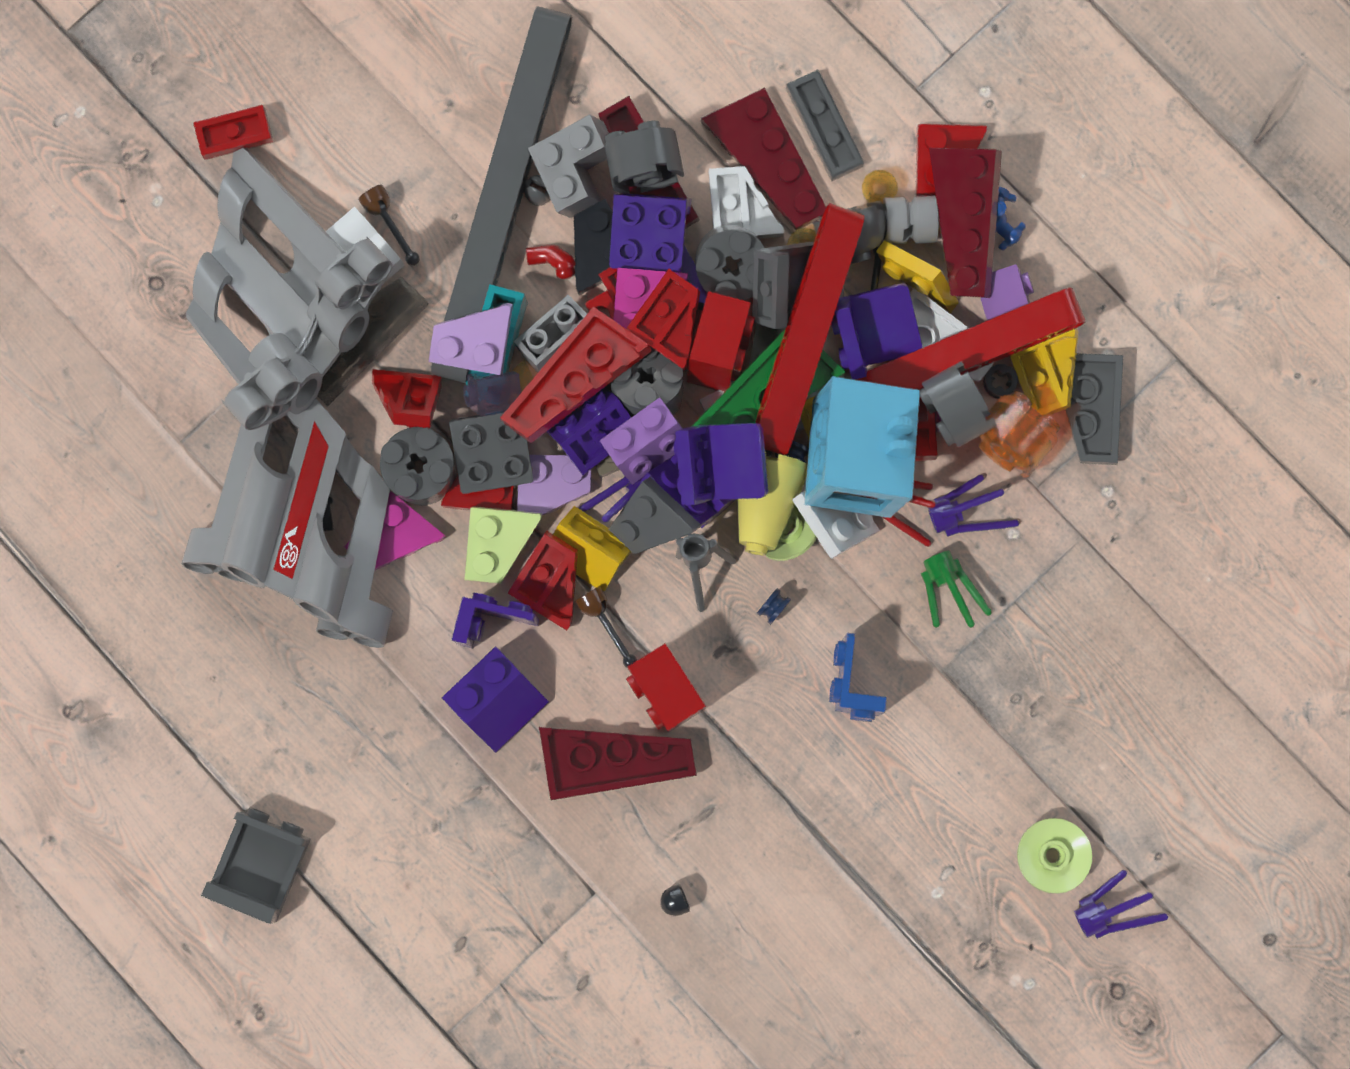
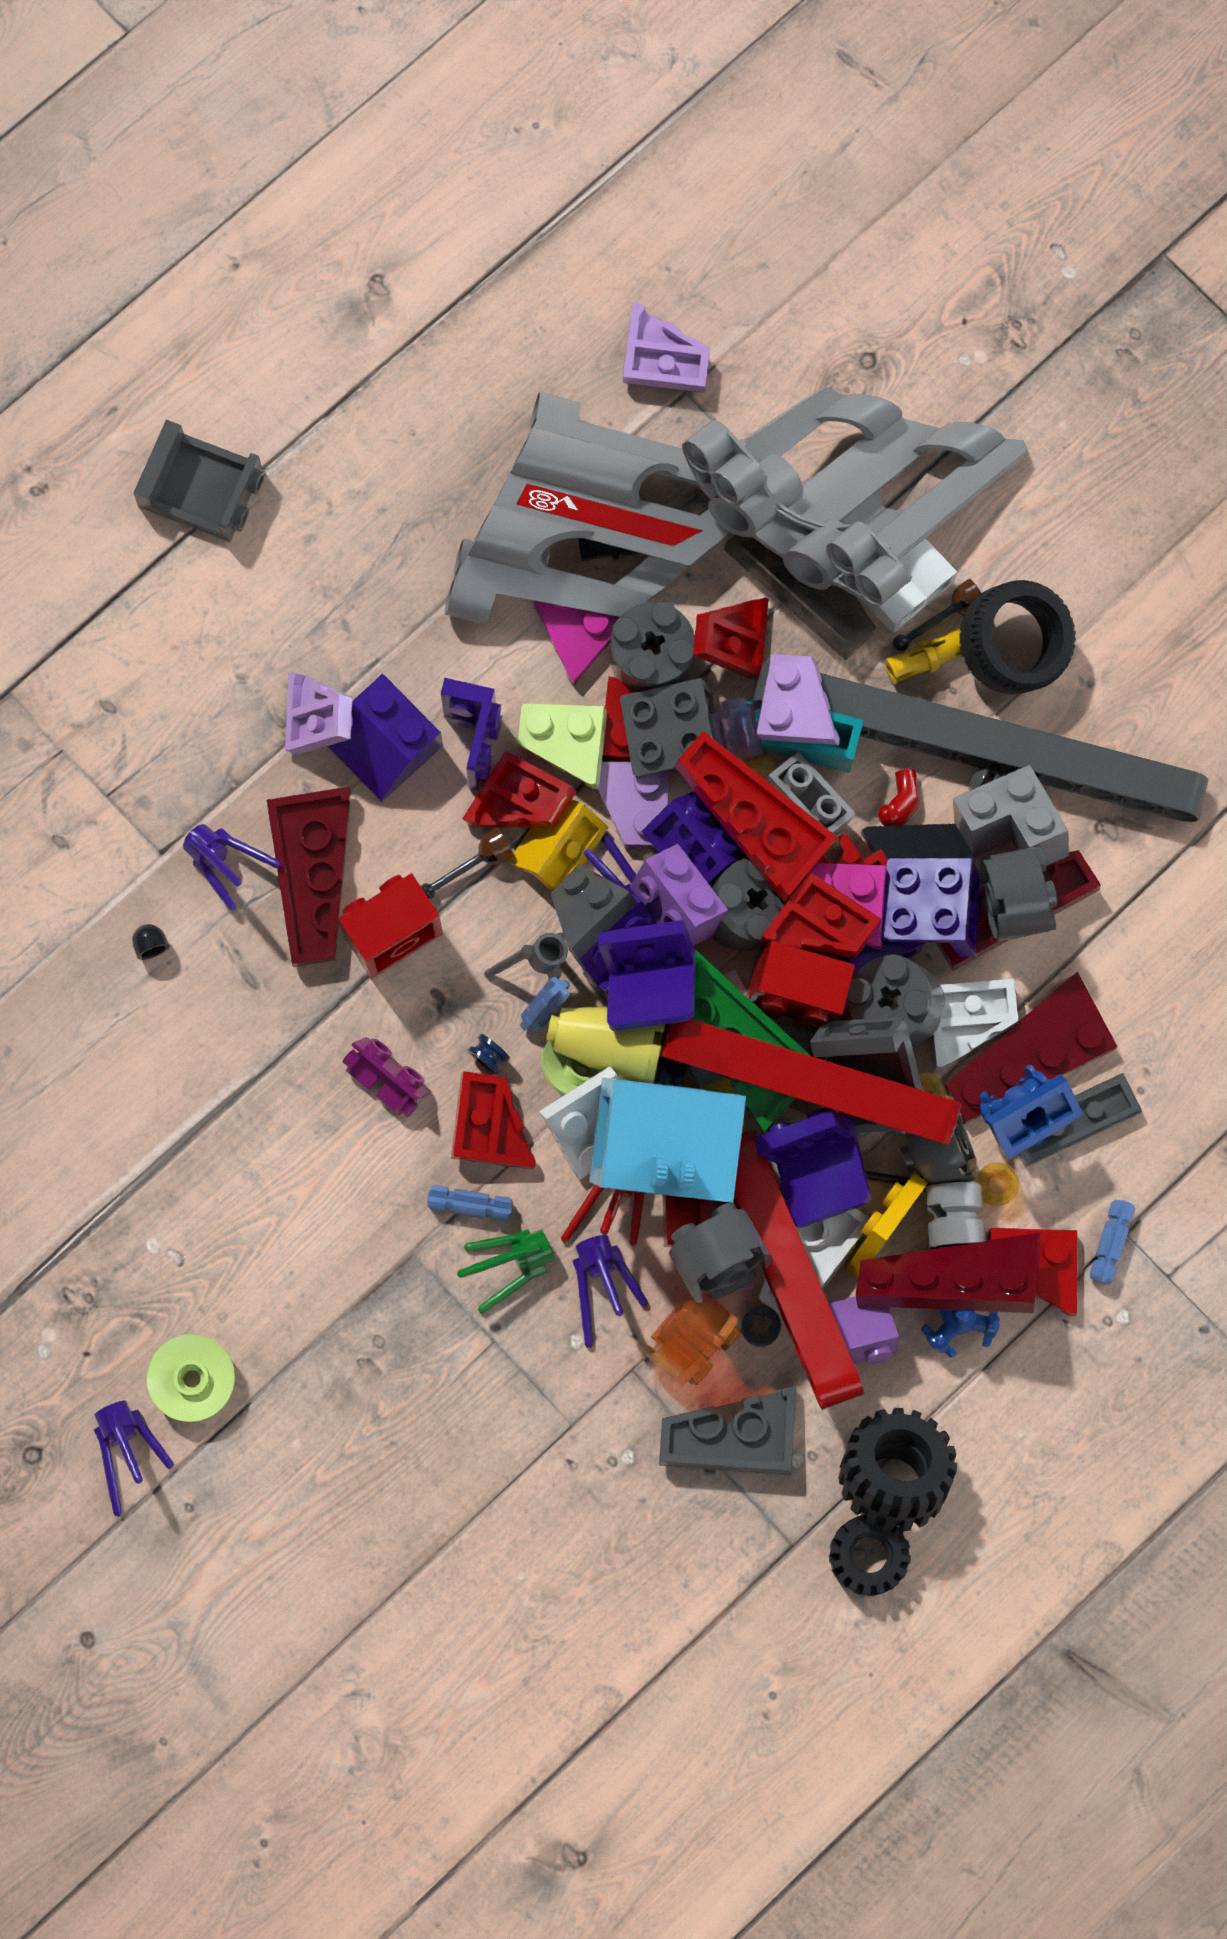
camera: 85 degrees right, 5 degrees down
(148, 457) = (662, 355): none -> lavender wing
(233, 131) = (1046, 438): red plate -> none
(419, 127) = (1056, 631): none -> black tyre
(426, 235) = (924, 657): none -> yellow pin
(474, 757) = (315, 715): none -> lavender wing
(595, 849) = (209, 852): none -> dark purple plant
(735, 556) = (545, 1004): none -> medium blue axle
(801, 679) = (375, 1063): none -> magenta hinge
(834, 152) = (1029, 1111): none -> blue piece
(834, 606) = (488, 1124): none -> red wing
(859, 706) = (386, 1124): blue bracket -> none
(900, 621) = (470, 1203): none -> medium blue axle
(926, 97) = (1112, 1241): none -> medium blue axle
(1048, 372) = (767, 1380): yellow wing -> none
(1108, 245) = (904, 1439): none -> black tyre
(1192, 274) = (863, 1582): none -> black tyre

